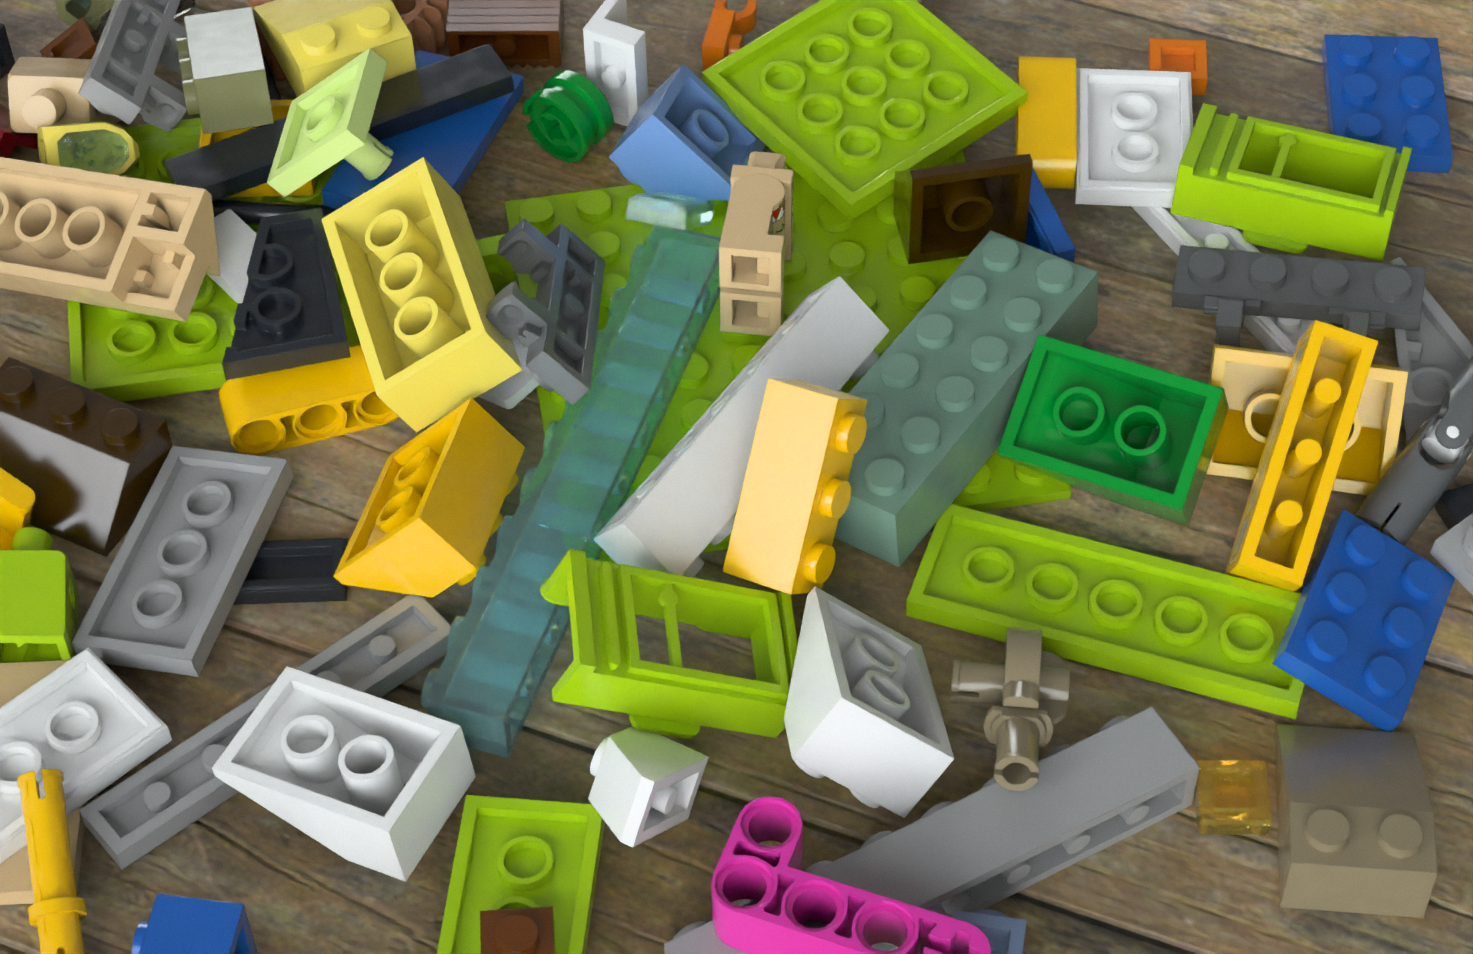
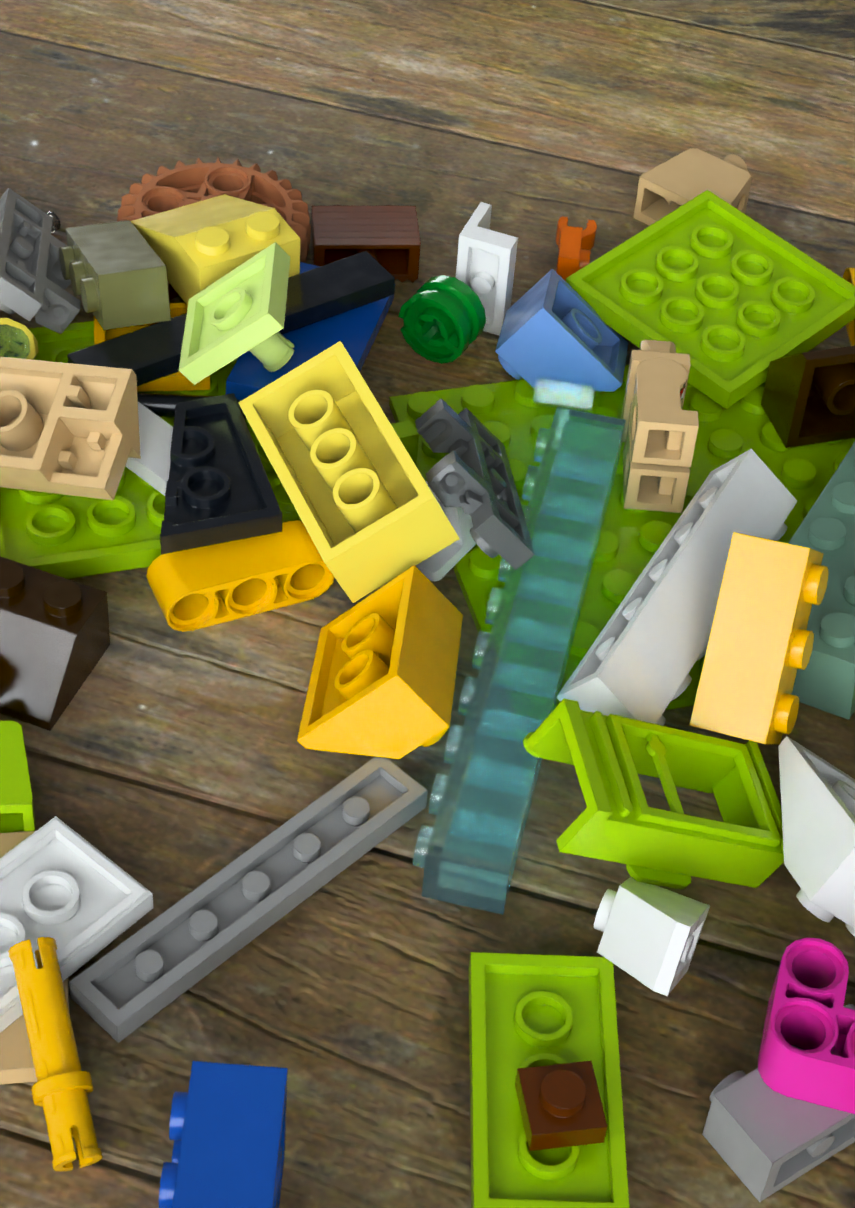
camera: 10 degrees left, 5 degrees down
(184, 560) = (137, 731): light grey plate -> none
(295, 572) = (234, 740): black tile -> none
(350, 770) = (350, 930): white slope -> none

